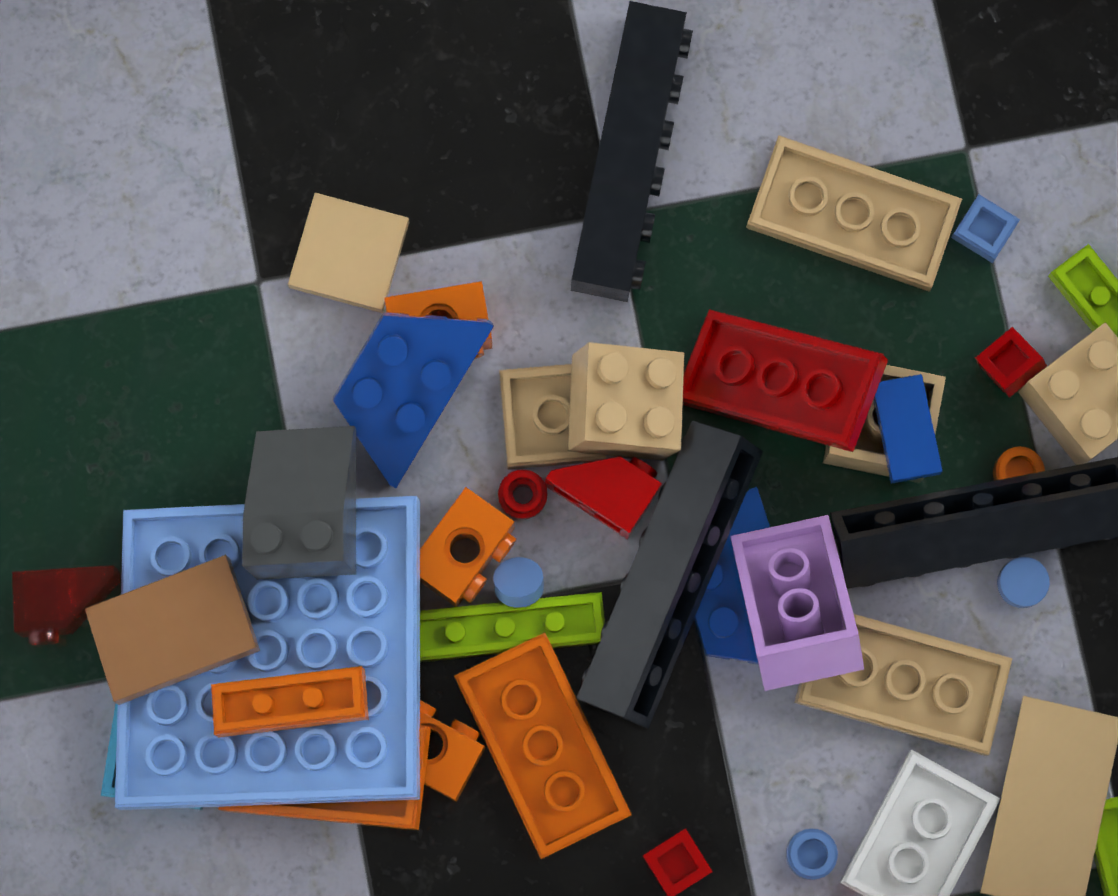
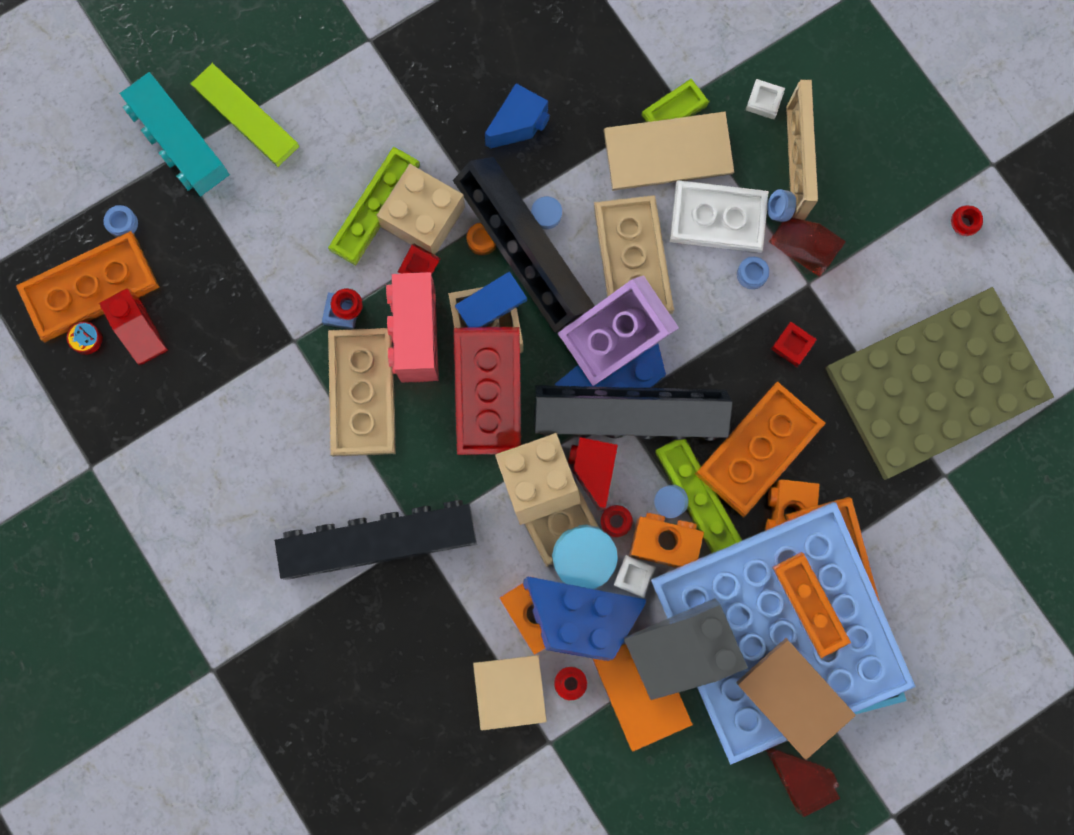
camera: 110 degrees left, 0 degrees up
(235, 411) = (640, 718): none -> orange tile
(325, 353) = (560, 679): none -> red plate
(435, 487) = (634, 576): none -> white tile
(489, 426) = (585, 556): none -> medium azure tile
(915, 312) = (413, 327): none -> coral brick
(996, 222) = (344, 295): none -> red plate

